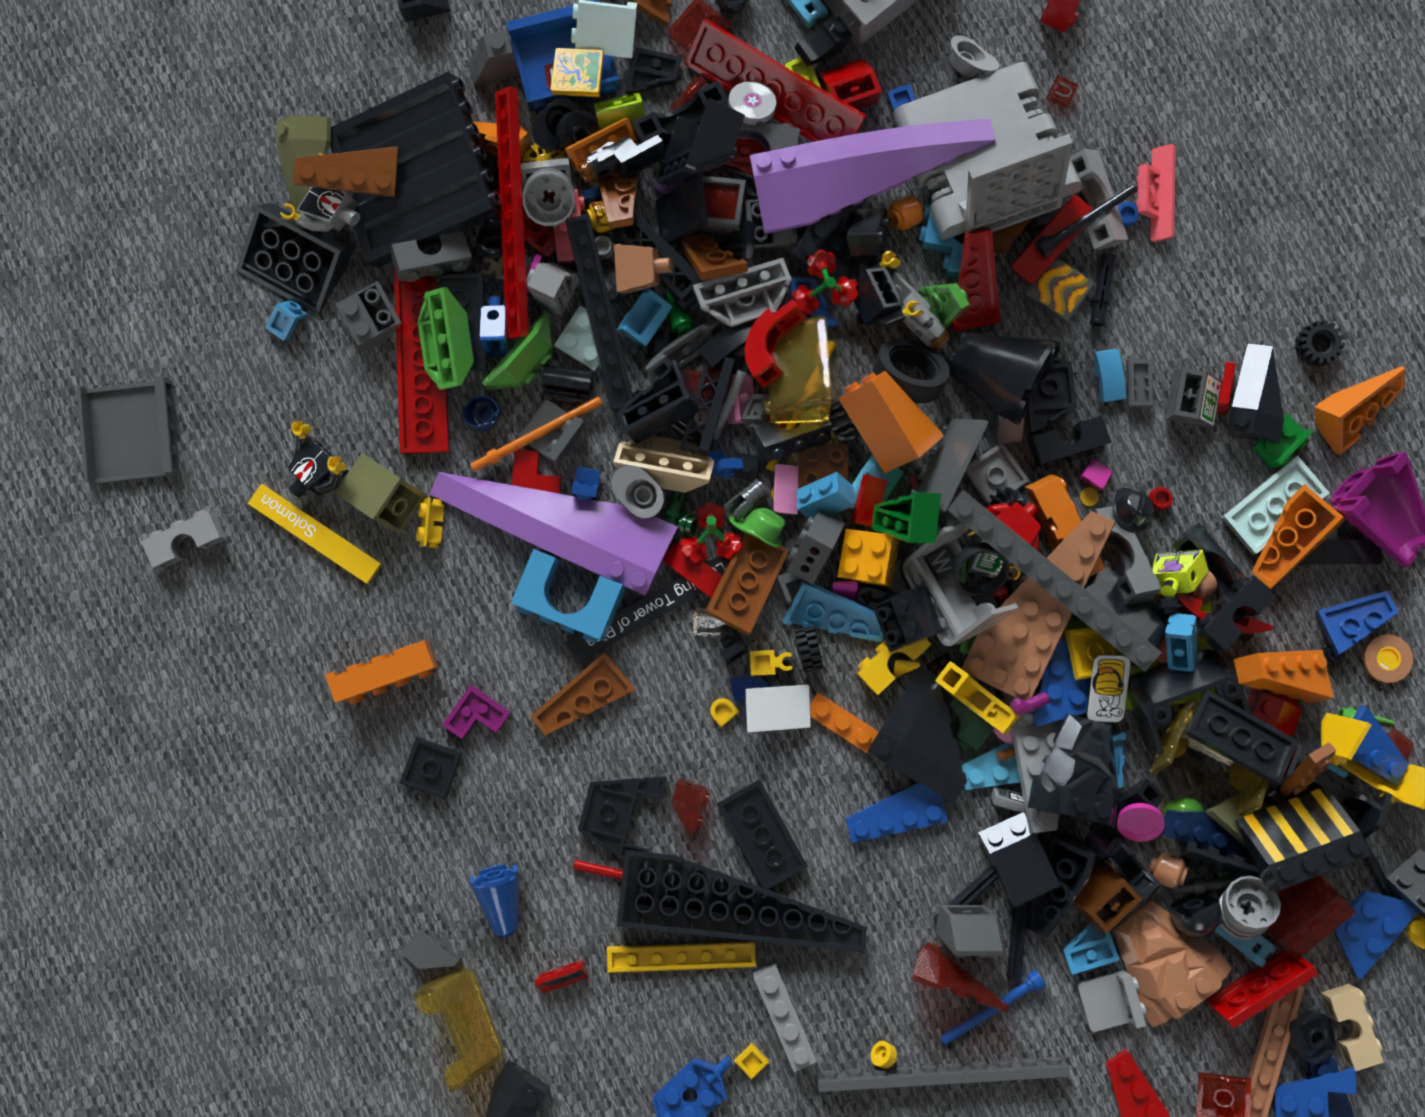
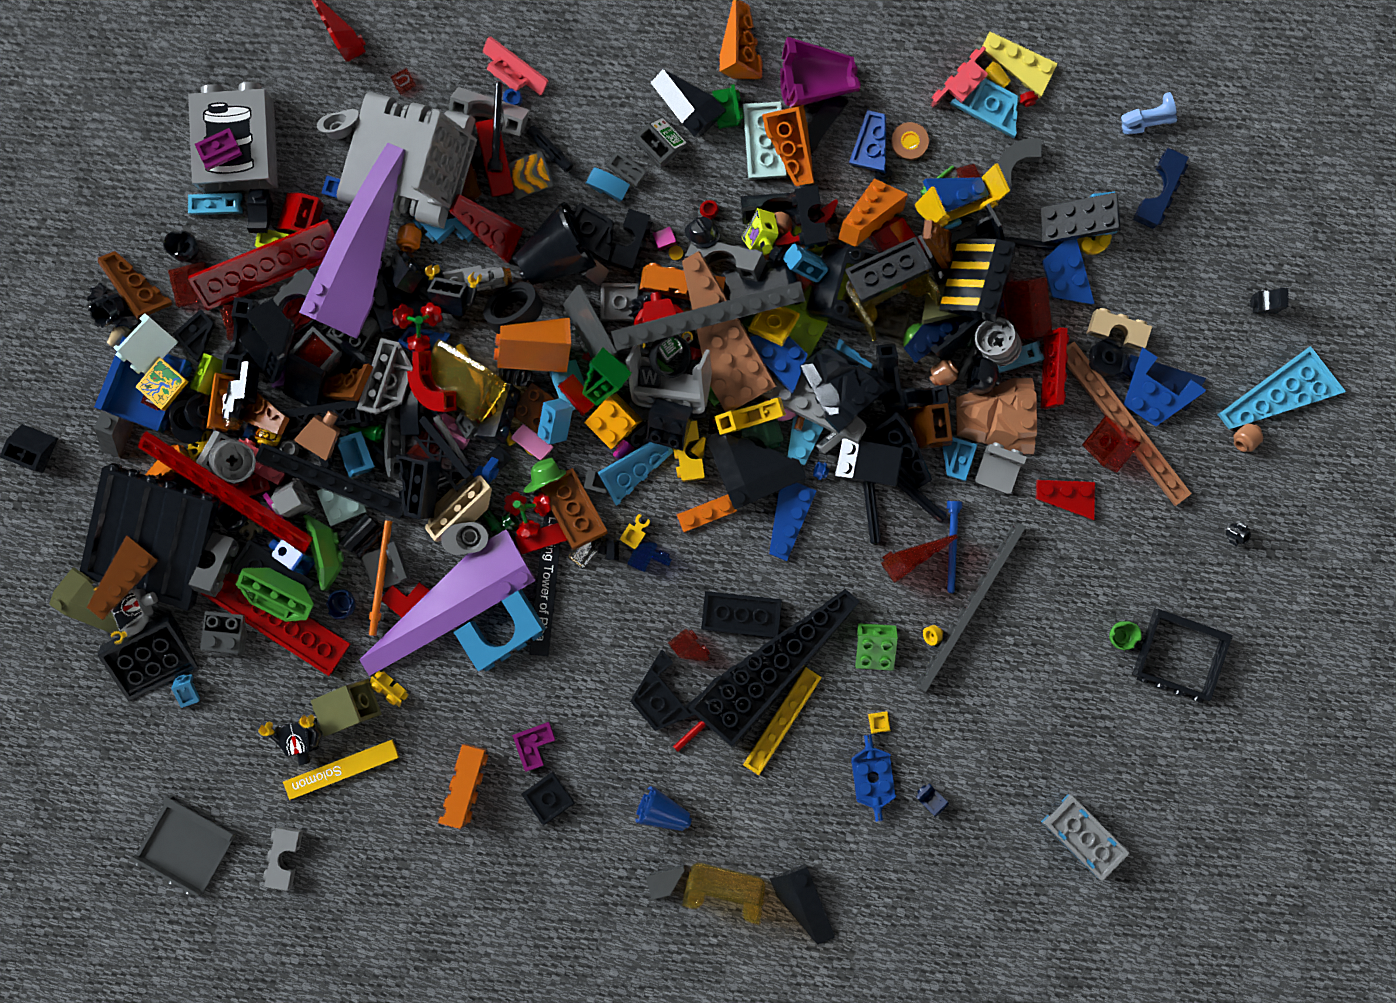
camera: 50 degrees left, 0 degrees up
(561, 976) = (741, 807): red slope -> none
(586, 483) = (435, 568): blue bracket -> none
(587, 692) = (571, 666): dark orange wing -> none
(723, 711) = (645, 584): yellow tile -> none
(746, 499) = (521, 472): dark grey hinge -> none
(754, 101) = (265, 285): light grey tile -> none
(778, 708) = (667, 547): white sticker -> none
(784, 1017) = (865, 681): light grey arch -> none
(808, 649) = (644, 500): black tyre -> none
(814, 546) = (580, 450): dark grey piece -> none
(829, 1002) = (876, 646): none -> bright green bracket
(946, 301) = (484, 254): bright green wing -> none
(969, 930) = (891, 525): dark grey slope -> none
(971, 811) = (821, 470): none -> blue plate
(1023, 707) = (775, 391): magenta arm -> none
(1108, 688) = (802, 329): sticker -> none
(1140, 822) = (899, 369): dark pink piece -> none
(1226, 388) = (668, 118): red tile -> none
(1329, 333) = (685, 27): black tyre -> none

